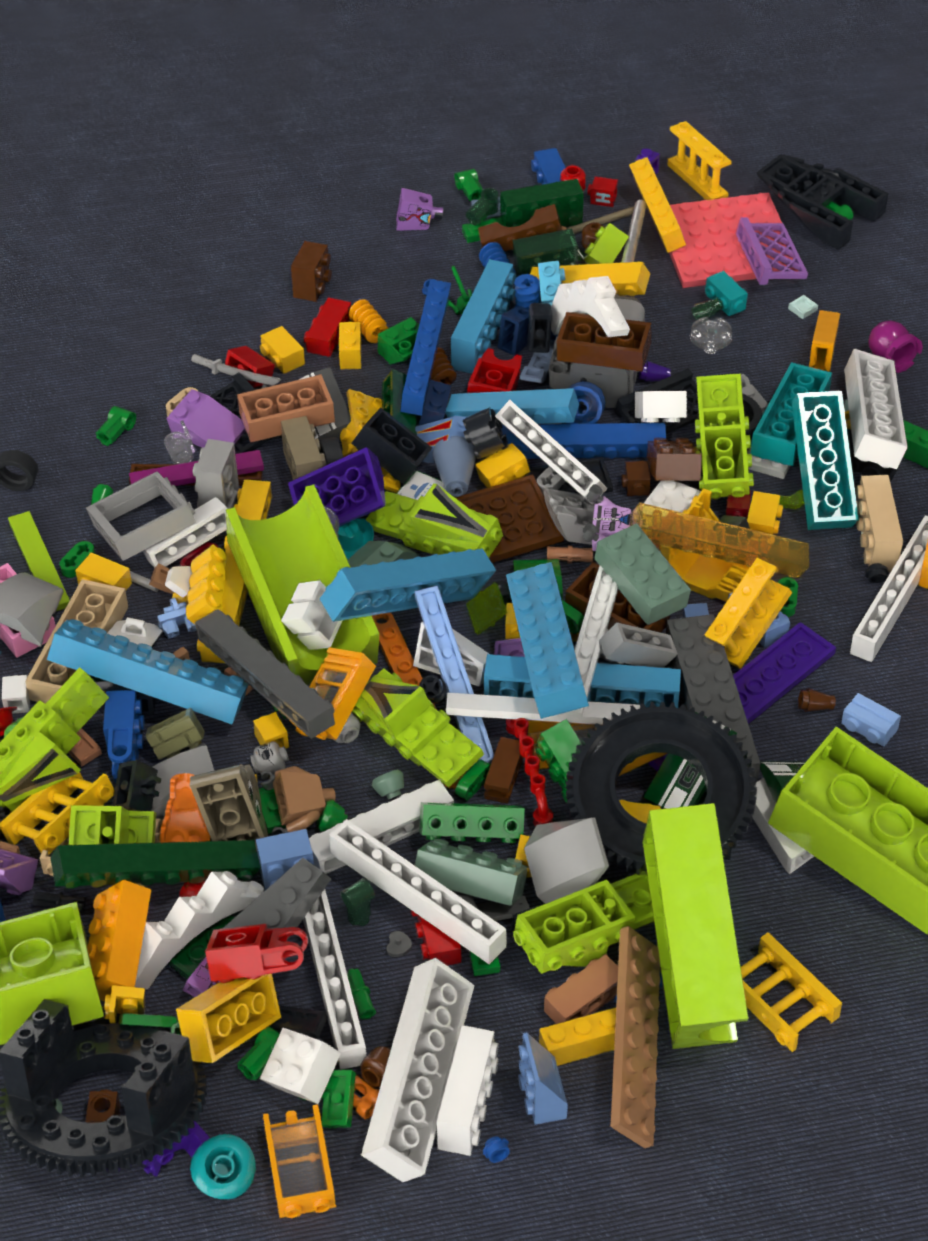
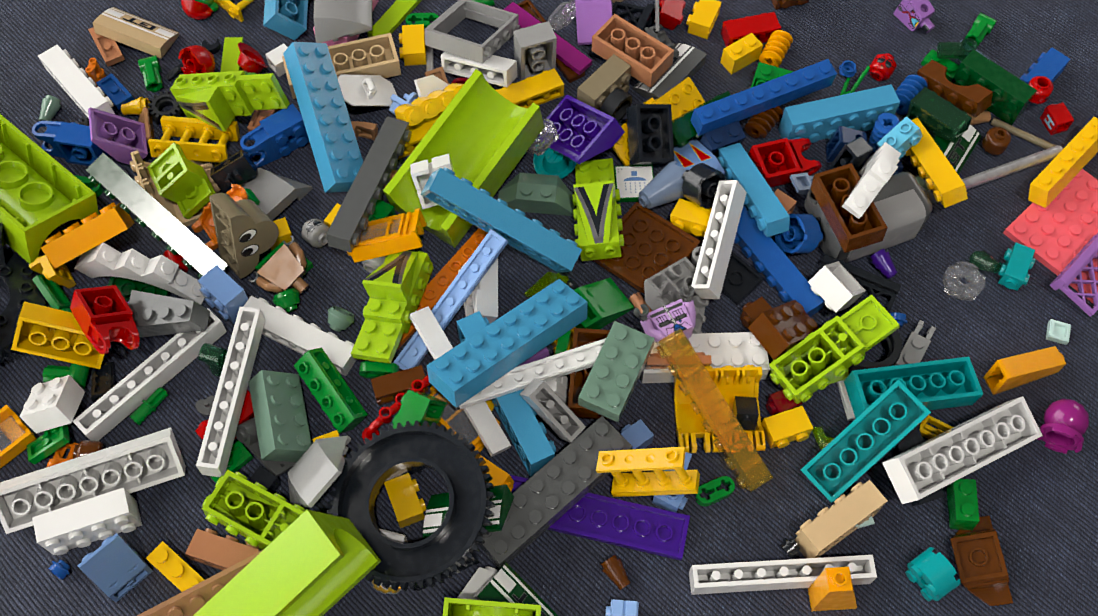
camera: 55 degrees right, 15 degrees up
(175, 734) = (296, 165): olive brick -> none
(429, 685) = (426, 295): black wheel -> none
(452, 258) = (882, 67): none -> red head
(607, 245) = (986, 154): lime brick -> none

